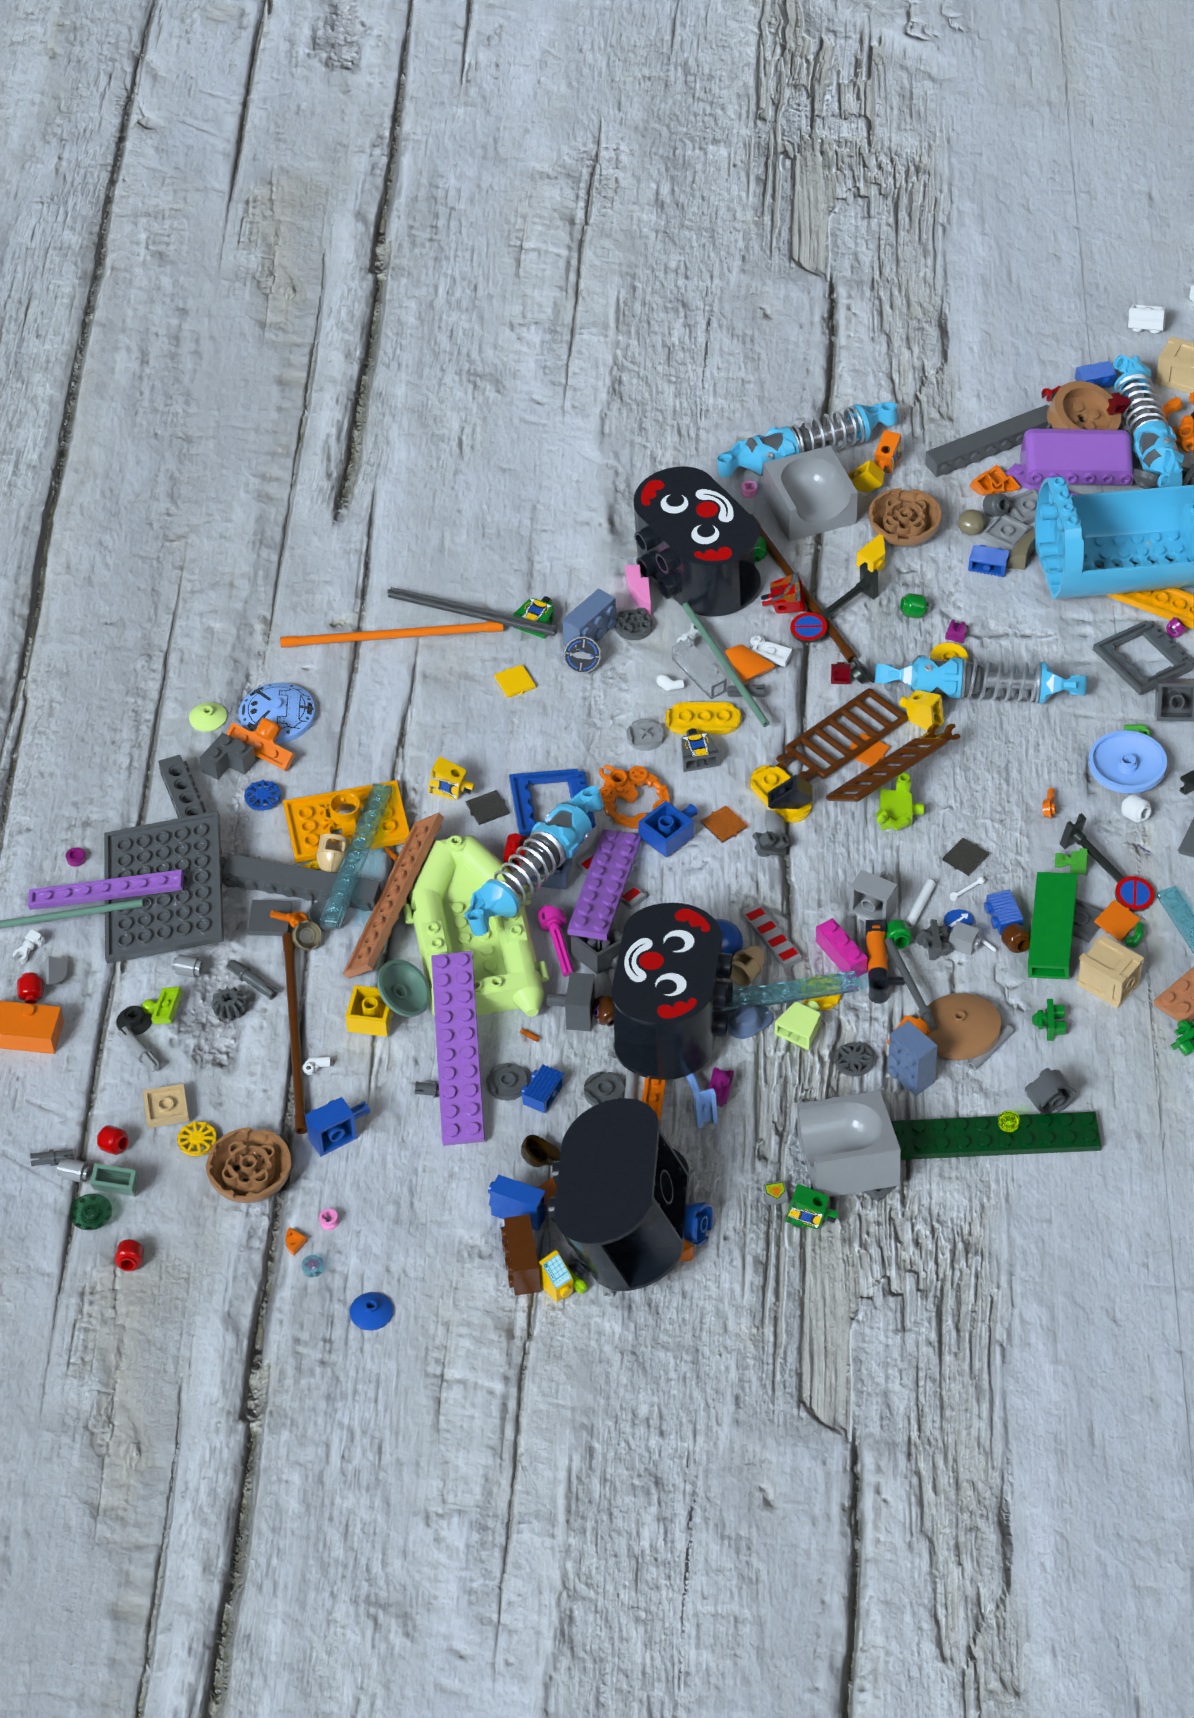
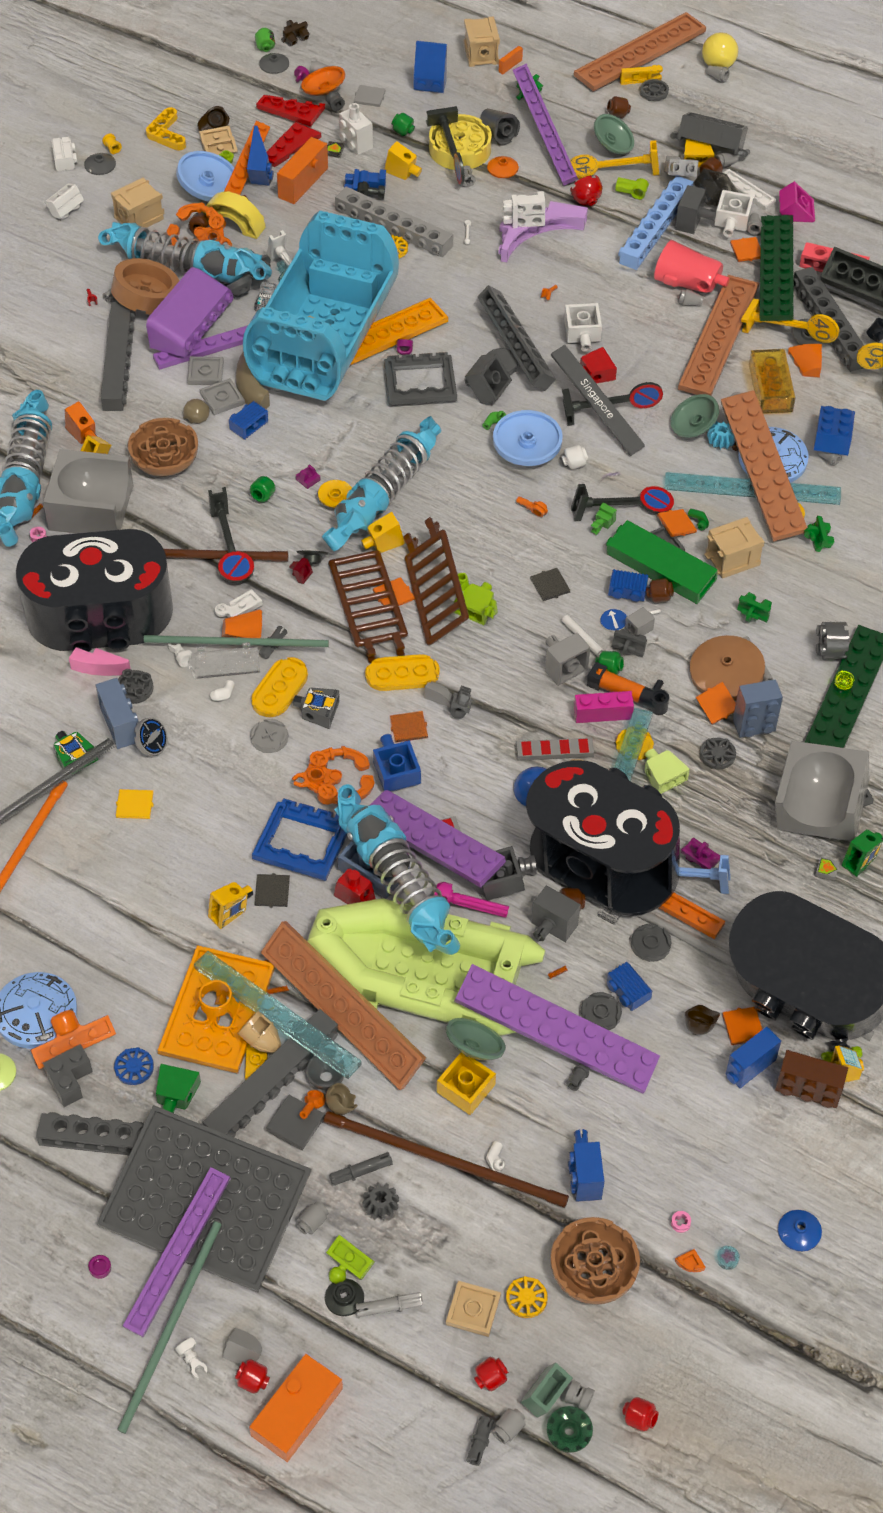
camera: 65 degrees left, 5 degrees up
(124, 1207) = (584, 1398): none -> light grey wheel
(254, 828) = (176, 1087): none -> green torso
(786, 595) = (189, 564): torso -> none
(790, 794) = (418, 663): black slope -> none
(872, 554) = (186, 488): yellow slope -> none
(924, 1011) = (709, 680): dark grey bar -> none
(954, 896) = (586, 610): white hinge -> none
(994, 482) = (162, 378): orange slope -> none
(996, 504) = (192, 386): dark grey head -> none
(1098, 374) = (99, 261): brick -> none
(1117, 404) = (158, 255): dark red tile -> none

